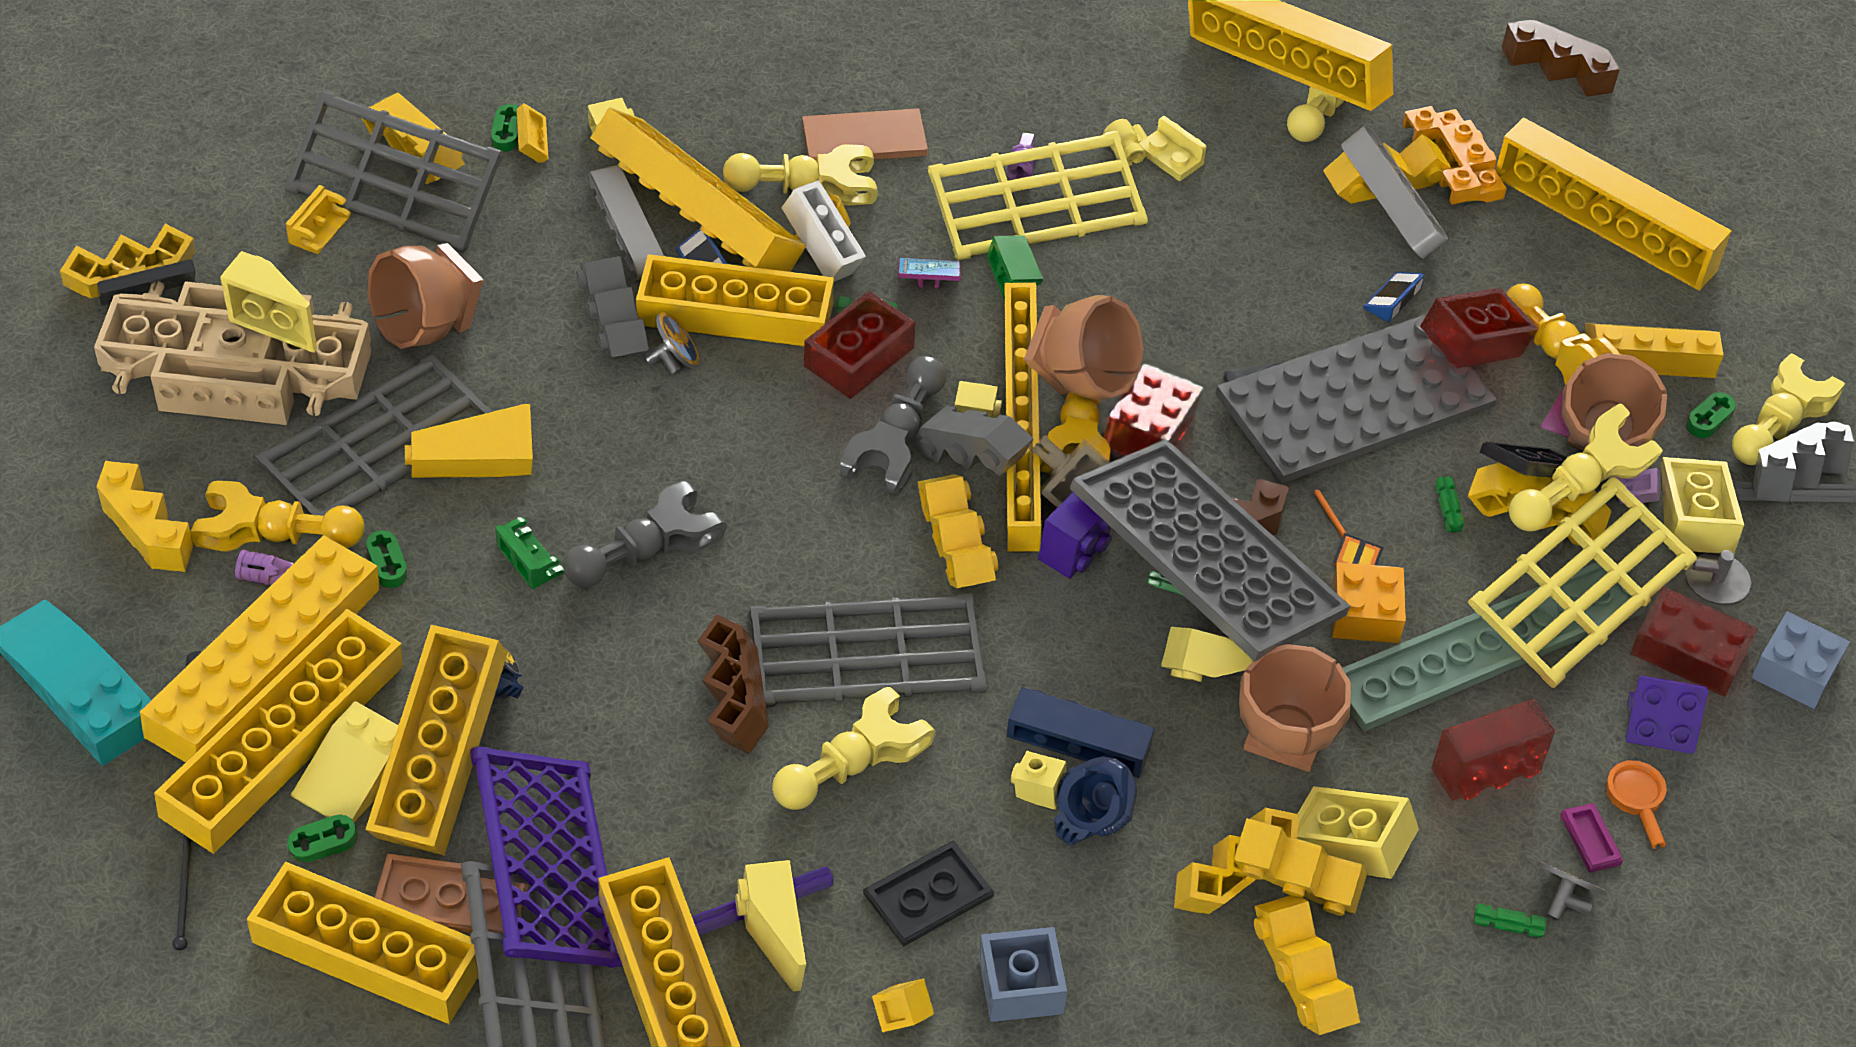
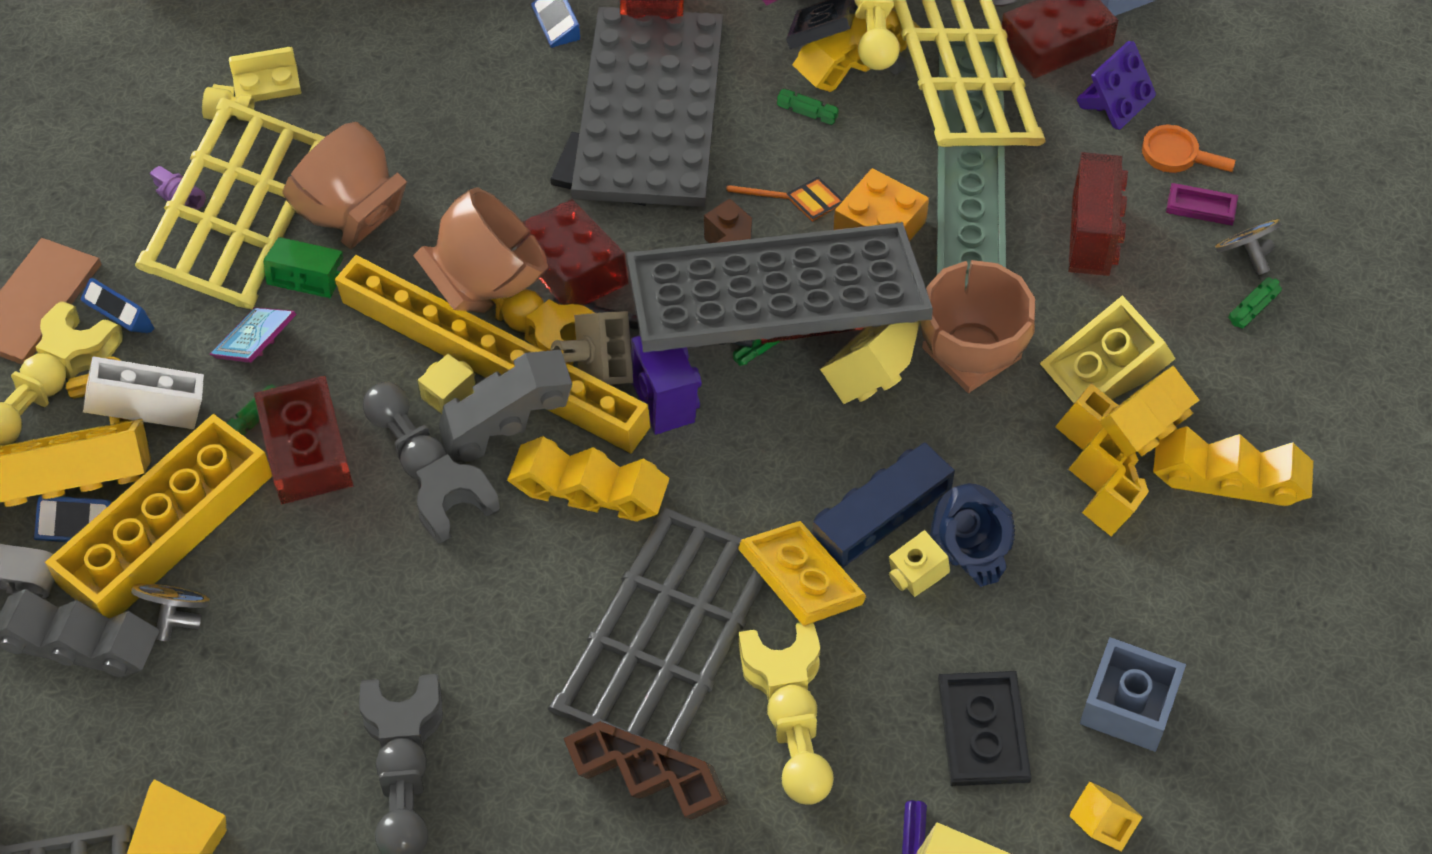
camera: 55 degrees left, 5 degrees up
(888, 182) = (116, 307): none -> slope
(974, 705) = (802, 572): none -> yellow tile
(1096, 241) = (345, 184): none -> nougat plate

